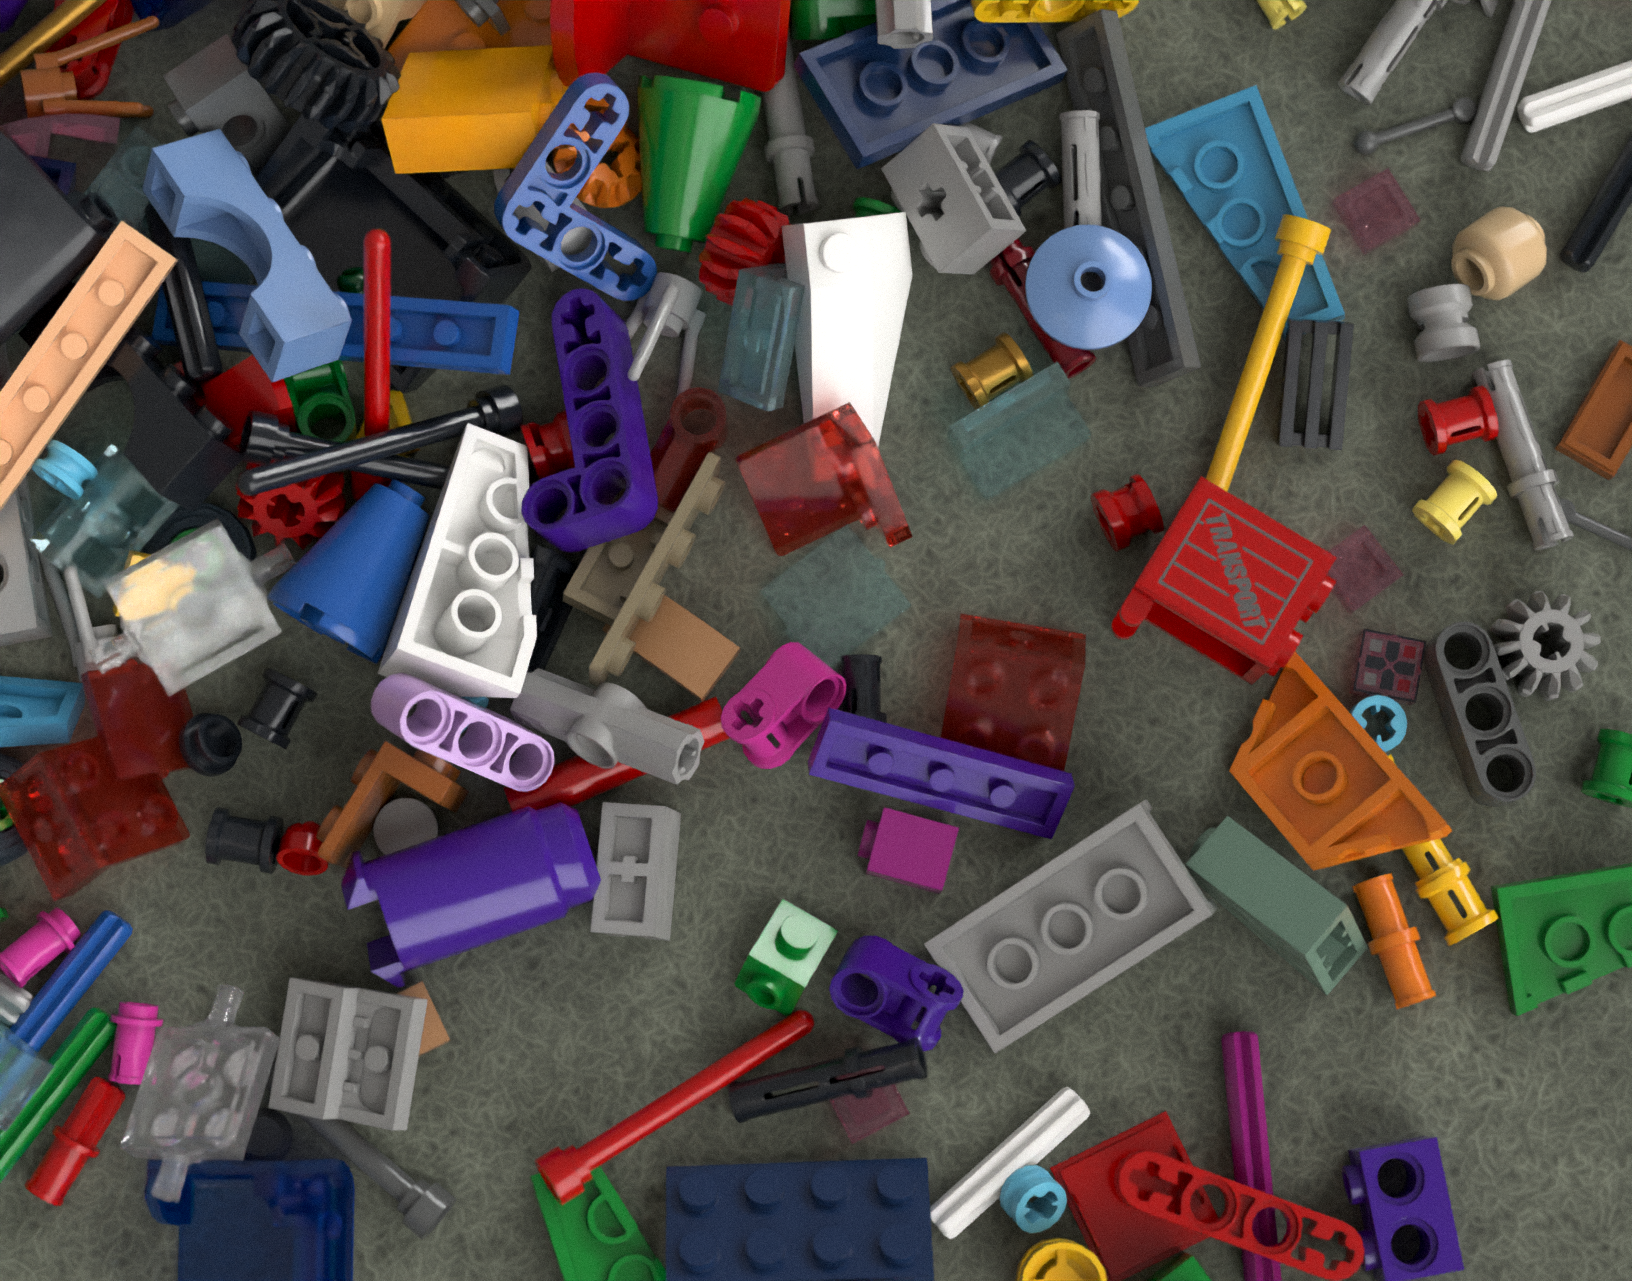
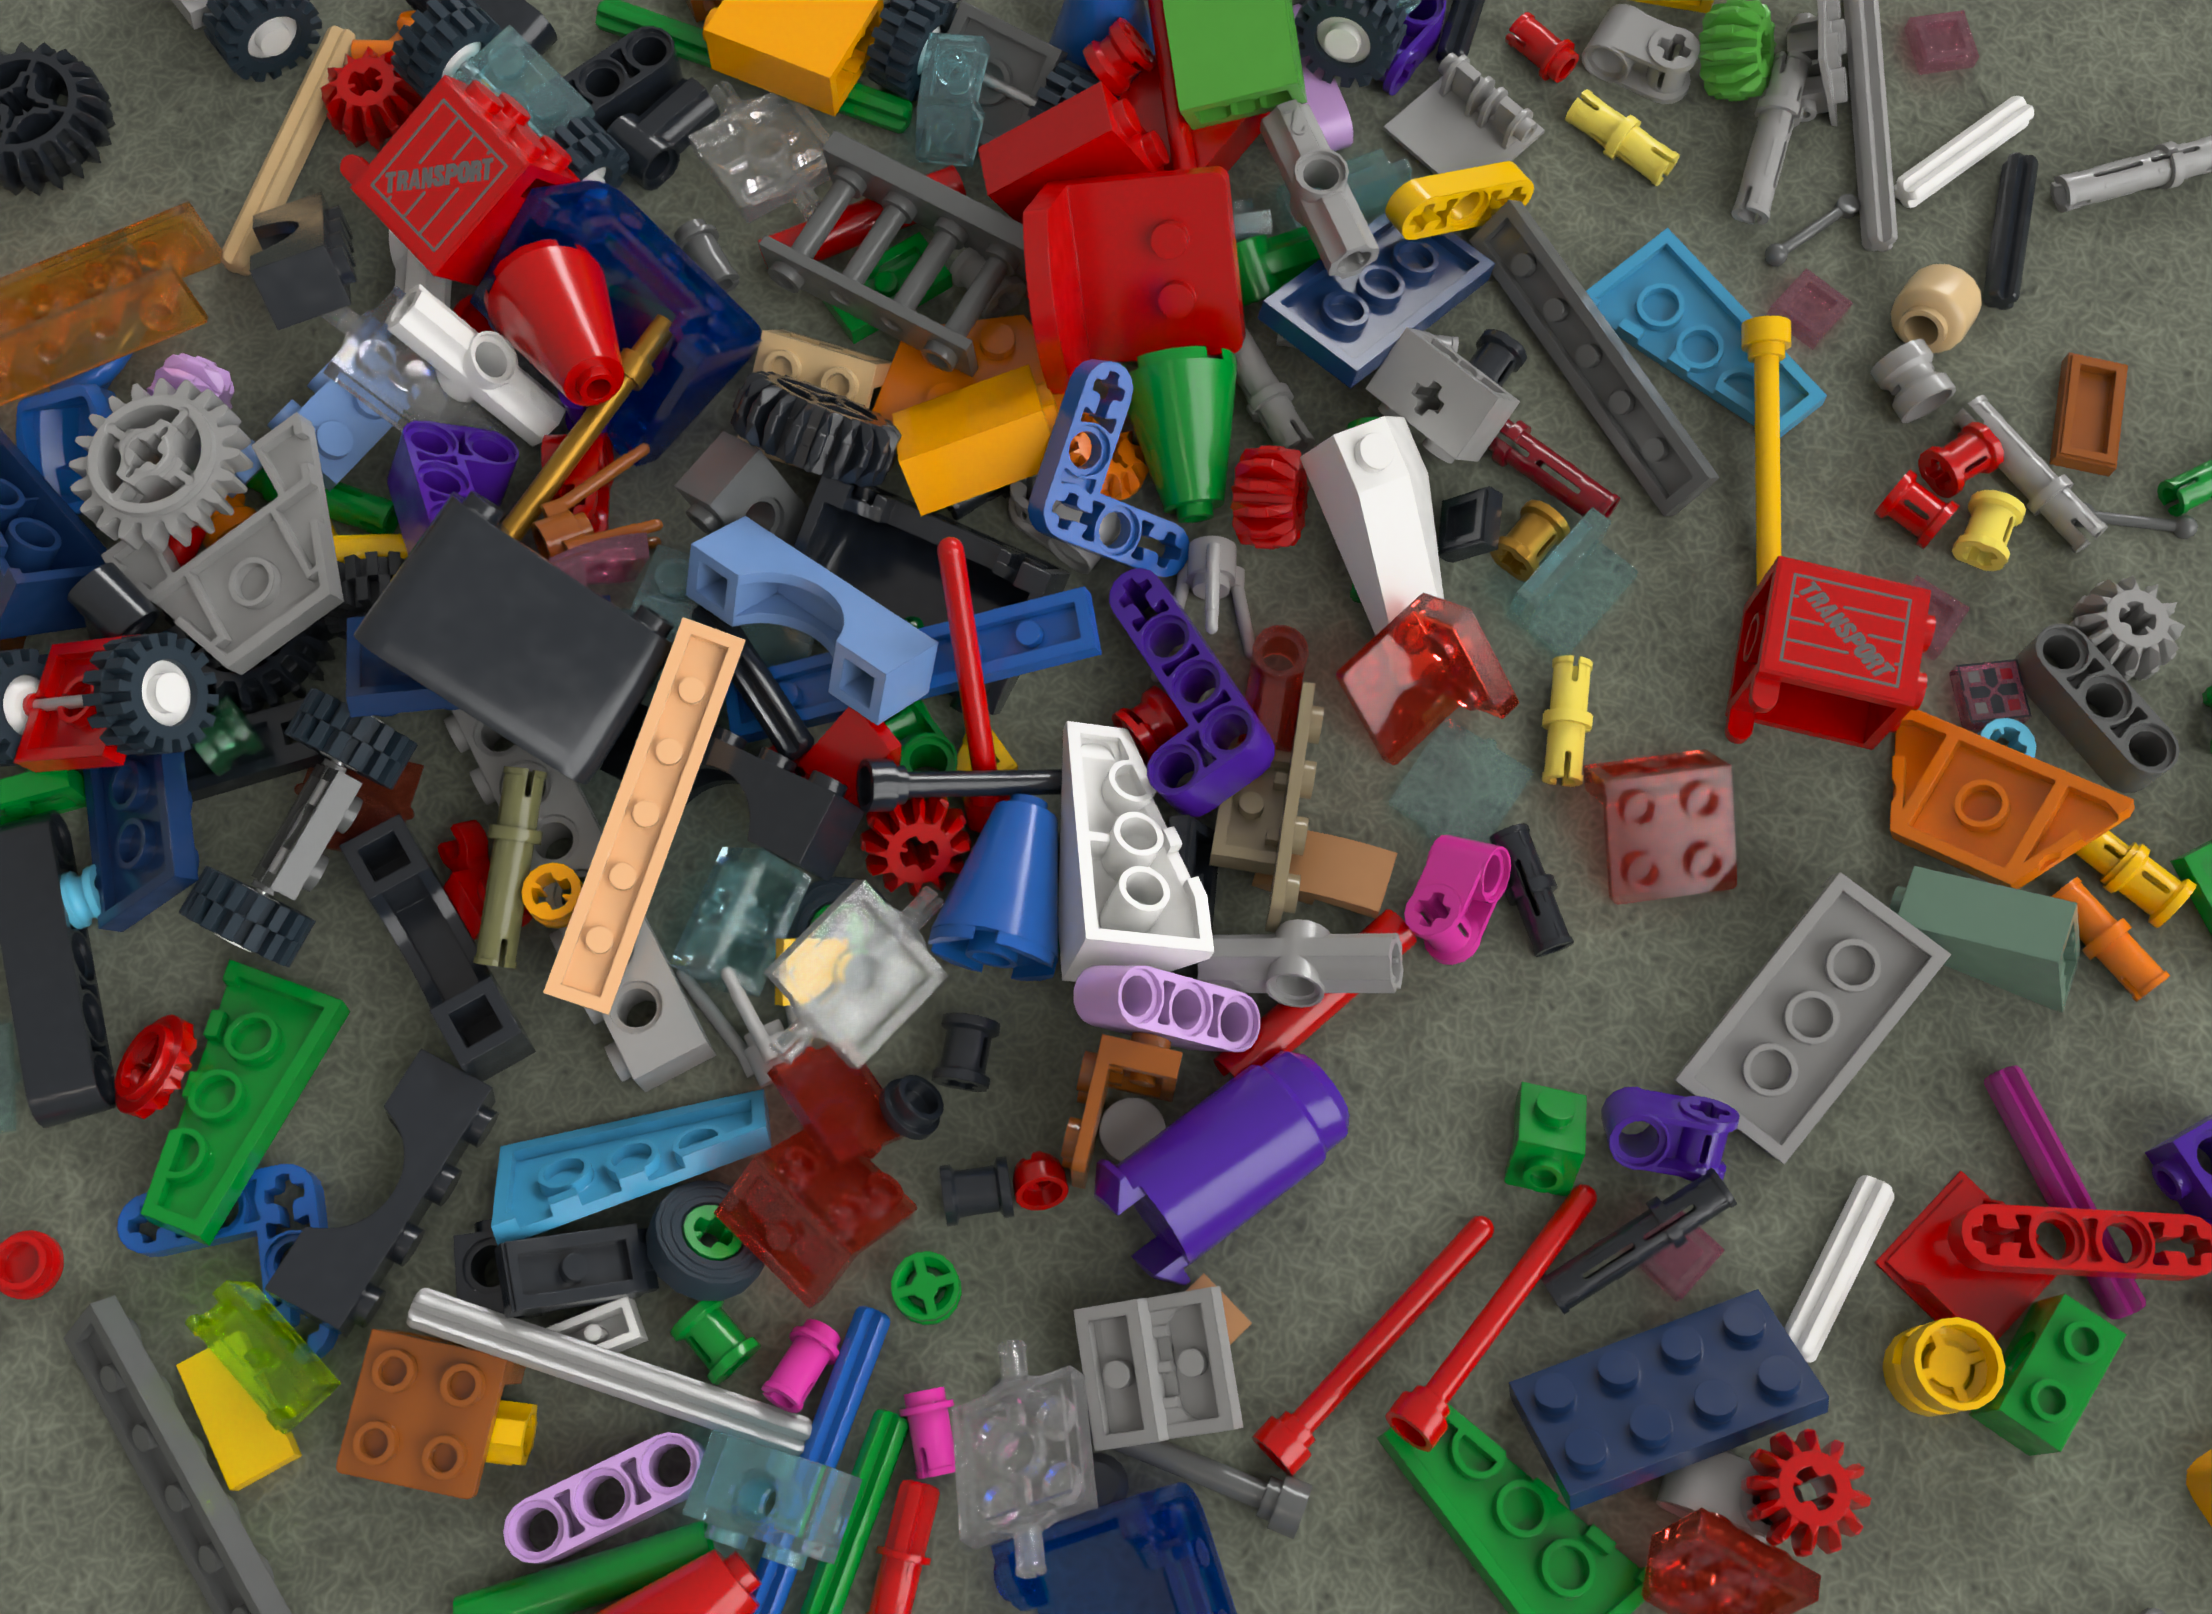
camera: 20 degrees left, 10 degrees down
(64, 469) = (688, 879): medium azure bush -> none
(157, 912) = (913, 1279): none -> green wheel
(452, 1149) = (1290, 1435): none -> red piece
(492, 410) = (1081, 704): black piece -> none
(636, 871) = (1376, 1097): light grey hinge -> none
(761, 336) = (1319, 560): clear light blue panel -> none
(908, 849) = (1627, 995): magenta brick -> none
(938, 338) = (1470, 524): none -> black tile
(940, 773) = (1631, 910): dark purple plate -> none
(959, 565) = (1567, 721): none -> light yellow pin
(1023, 1185) = (1877, 1294): medium azure bush -> none
(1070, 311) = (1583, 456): medium blue dish -> none
(1081, 176) = (1580, 438): light grey pin -> none
(1127, 512) = (1702, 626): red wheel -> none
(1342, 357) = (1844, 458): black tile -> none
(1390, 457) = (1922, 528): none -> red bush

